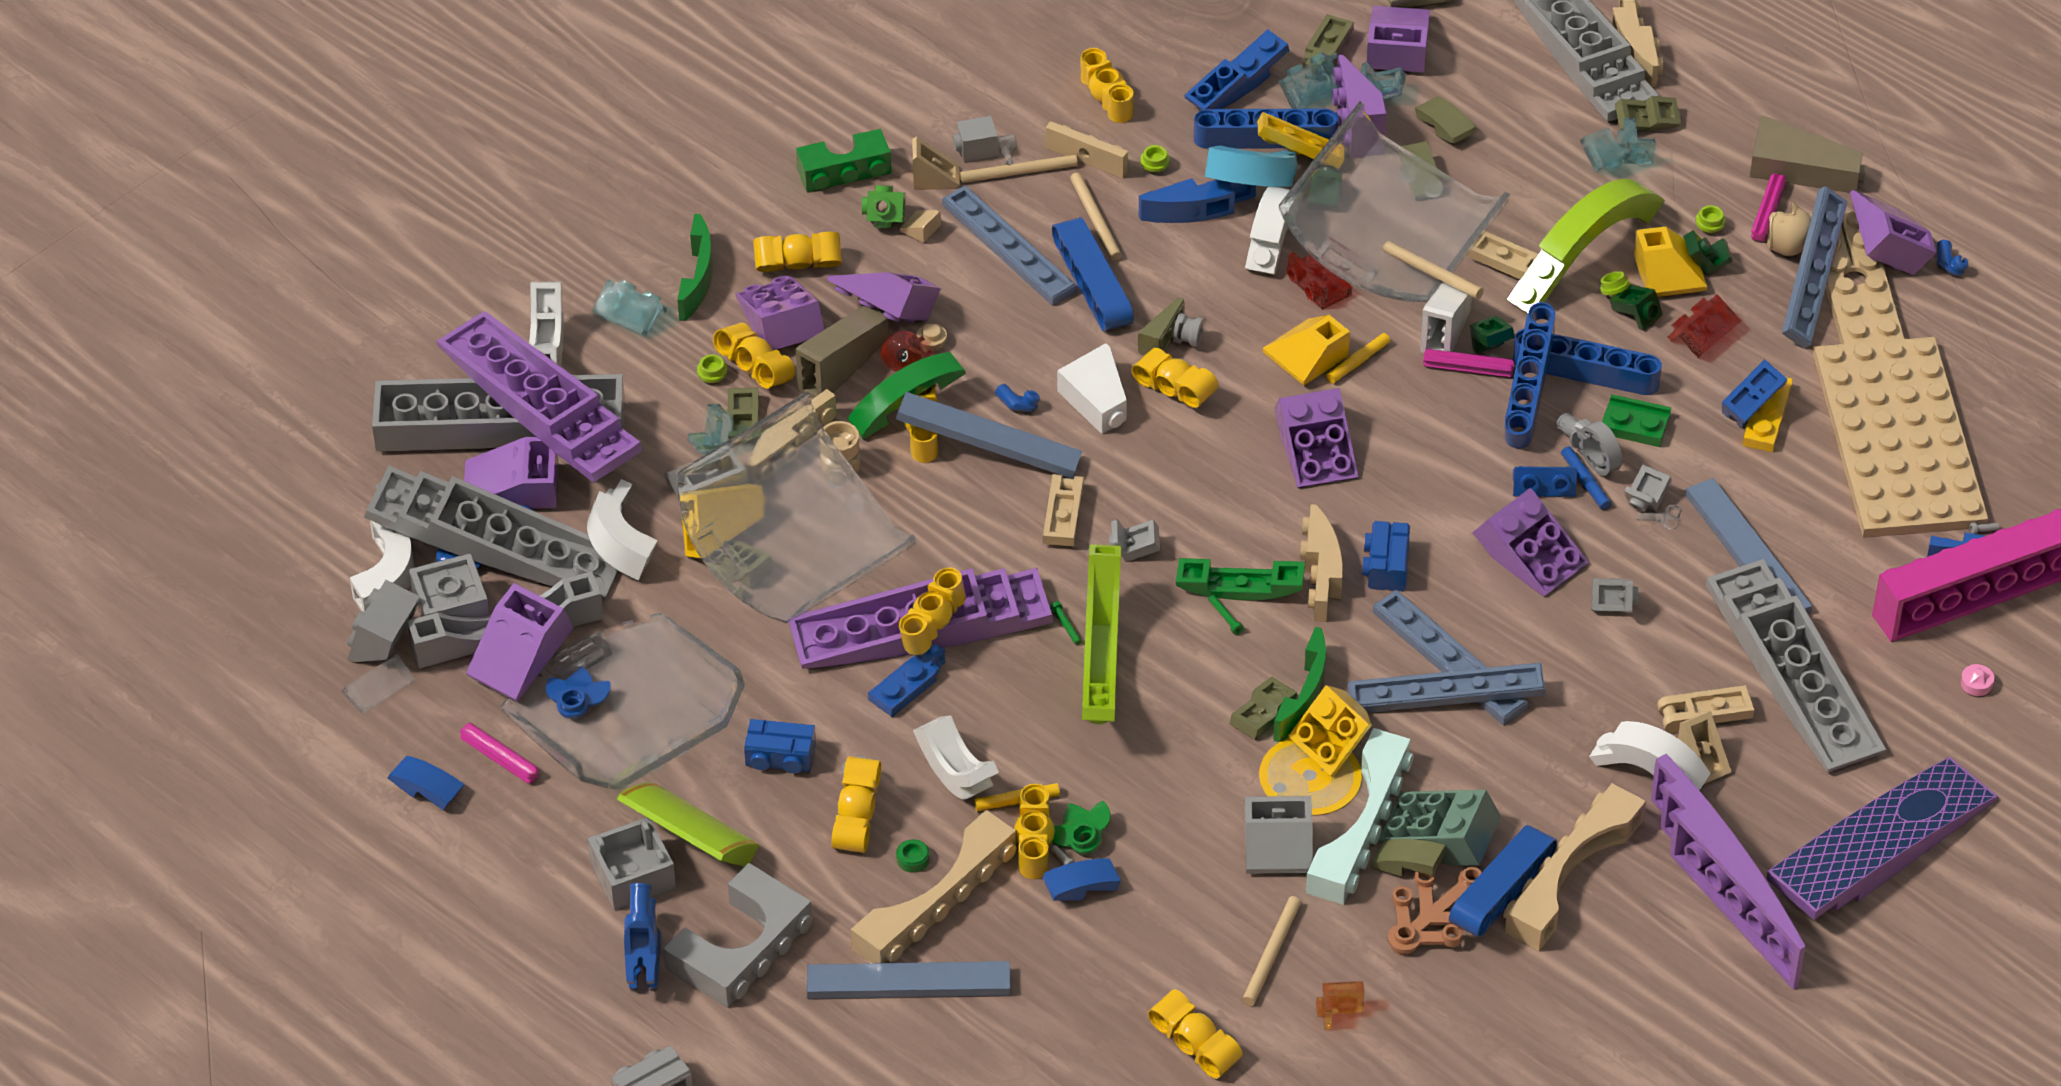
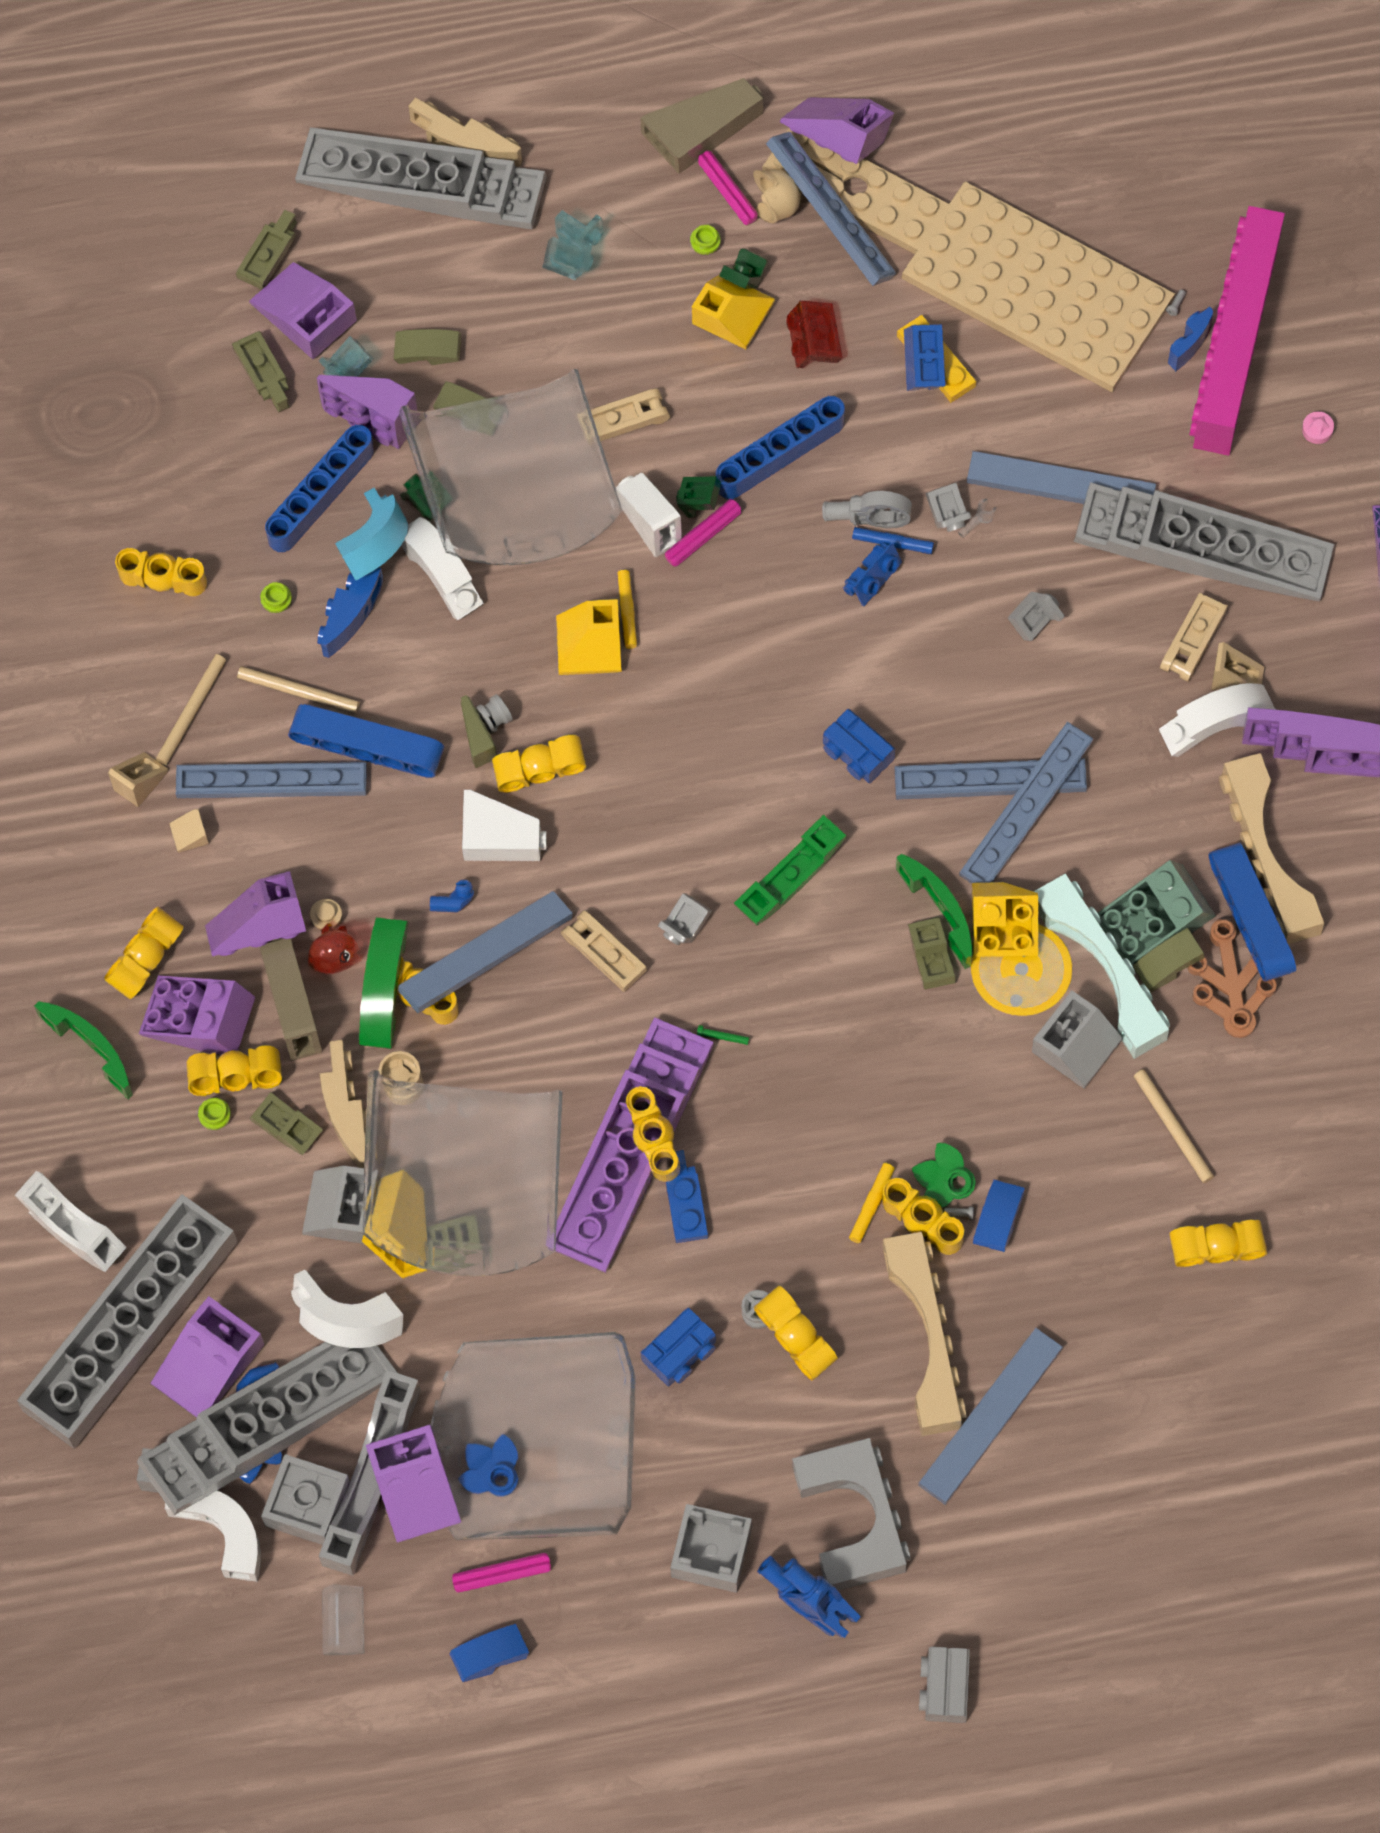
camera: 50 degrees left, 20 degrees up
(382, 623) = (297, 1577): light grey slope -> none
(541, 396) = (157, 1279): medium lavender slope -> none
(627, 307) = (85, 1130): clear light blue bracket -> none
(690, 823) = (712, 1476): lime slope -> none
(716, 430) = (295, 1163): clear light blue bracket -> none
(825, 169) = (59, 865): green arch -> none
(895, 210) = (153, 847): bright green brick -> none
(912, 855) = (867, 1324): green tile -> none
(952, 760) = (808, 1227): white arch -> none
(976, 139) = (133, 718): light grey brick -> none
(1007, 144) = (156, 699): clear hand -> none
(1087, 148) = (221, 641): tan tile -> none
(1101, 634) = (780, 1033): lime arch -> none
(1236, 627) = (832, 912): green piece -> none
(1237, 78) = (240, 462): blue slope -> none
(1291, 136) = (364, 474): yellow plate -> none
(1309, 83) = (300, 414): clear light blue bracket -> none
(1316, 437) = (691, 706): medium lavender slope -> none
(1317, 281) = (523, 579): clear red bracket -> none
(1322, 561) = (815, 792): tan slope -> none
(1339, 998) = (1266, 1110): clear orange bracket -> none
(1433, 270) = (600, 486): tan bar -> none
(1530, 362) = (771, 487): blue beam -> none
(1531, 543) = (930, 633): medium lavender slope -> none
(1578, 228) = (662, 353): lime arch -> none
(1614, 283) = (715, 363): lime plate -> none
(1637, 420) = (864, 459): green plate -> none
(1638, 302) = (750, 362): dark green bracket -> none
(1652, 114) = (555, 194): olive slope -> none
(1951, 264) = (901, 107): blue arm -> none

